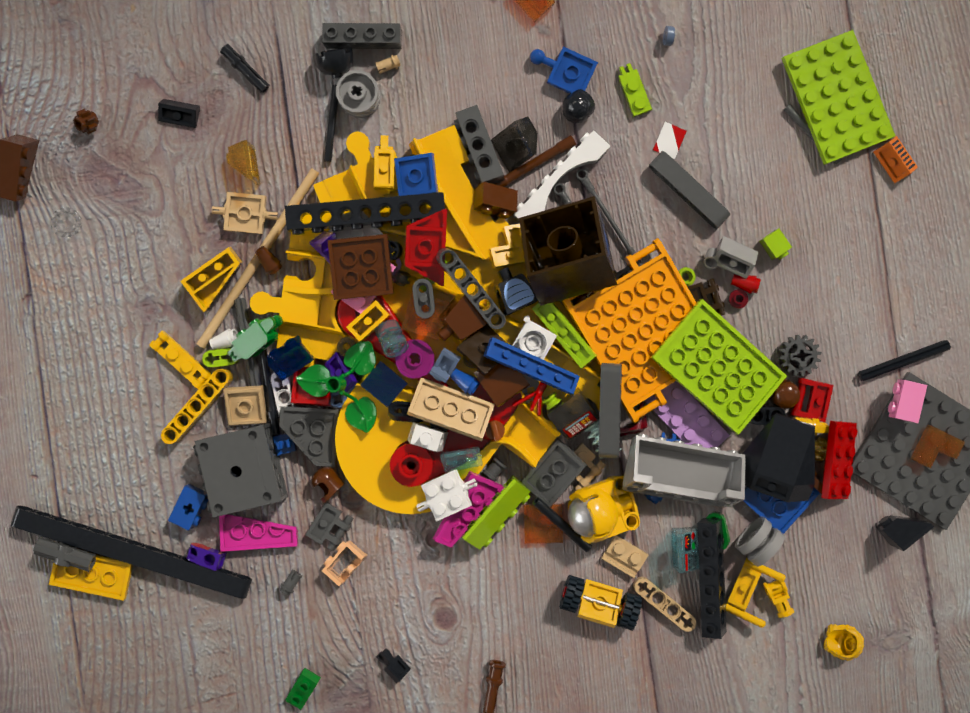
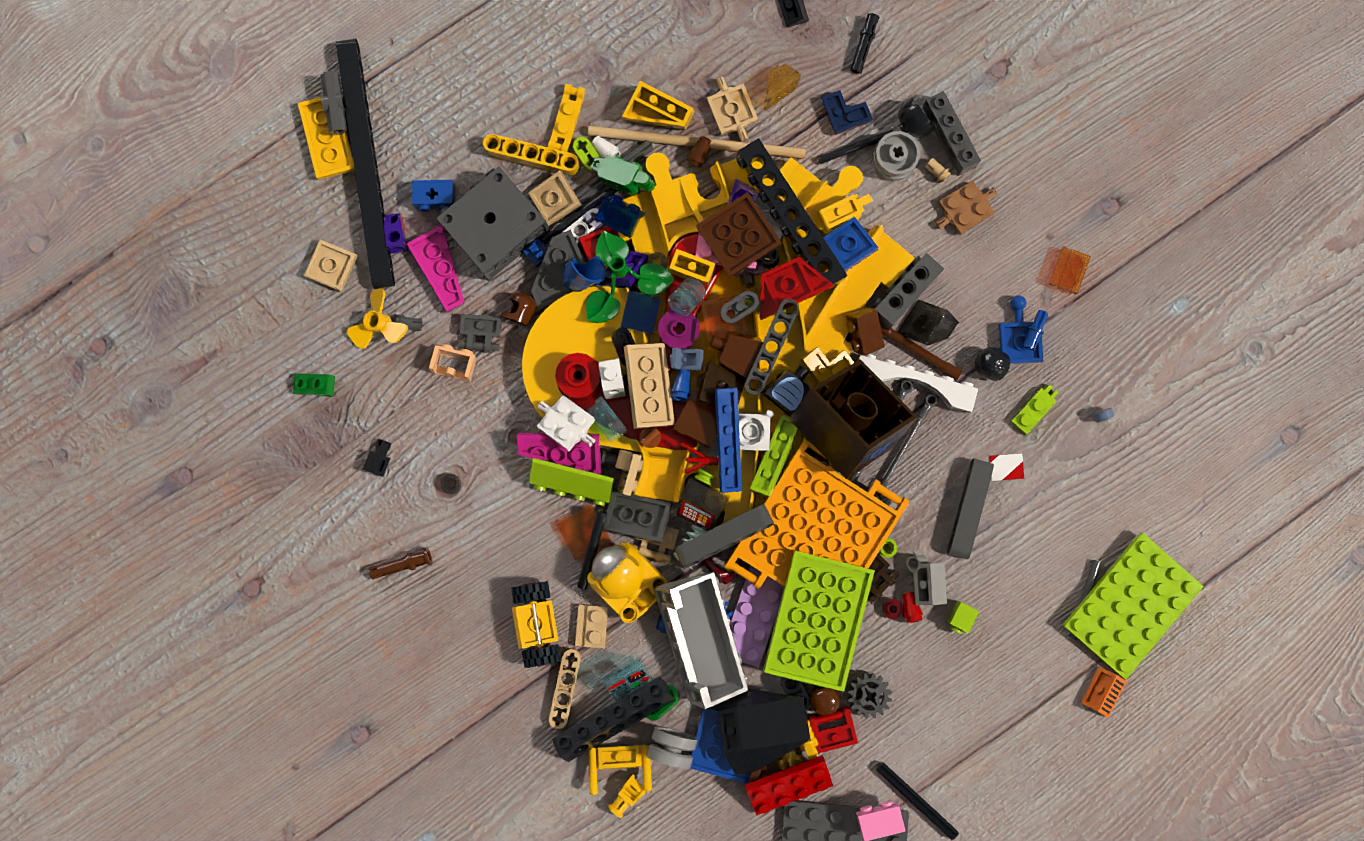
camera: 65 degrees right, 5 degrees down
(206, 625) = (330, 265): none -> tan plate
(276, 609) = (363, 333): none -> yellow piece
(299, 123) = (845, 118): none -> dark blue plate
(326, 417) = (580, 276): none -> blue helmet
(433, 57) = (966, 208): none -> medium nougat plate
(445, 620) = (444, 483): none -> clear smoke plate
(508, 457) = (630, 465): none -> tan plate
(569, 54) = (1035, 330): none -> blue axle

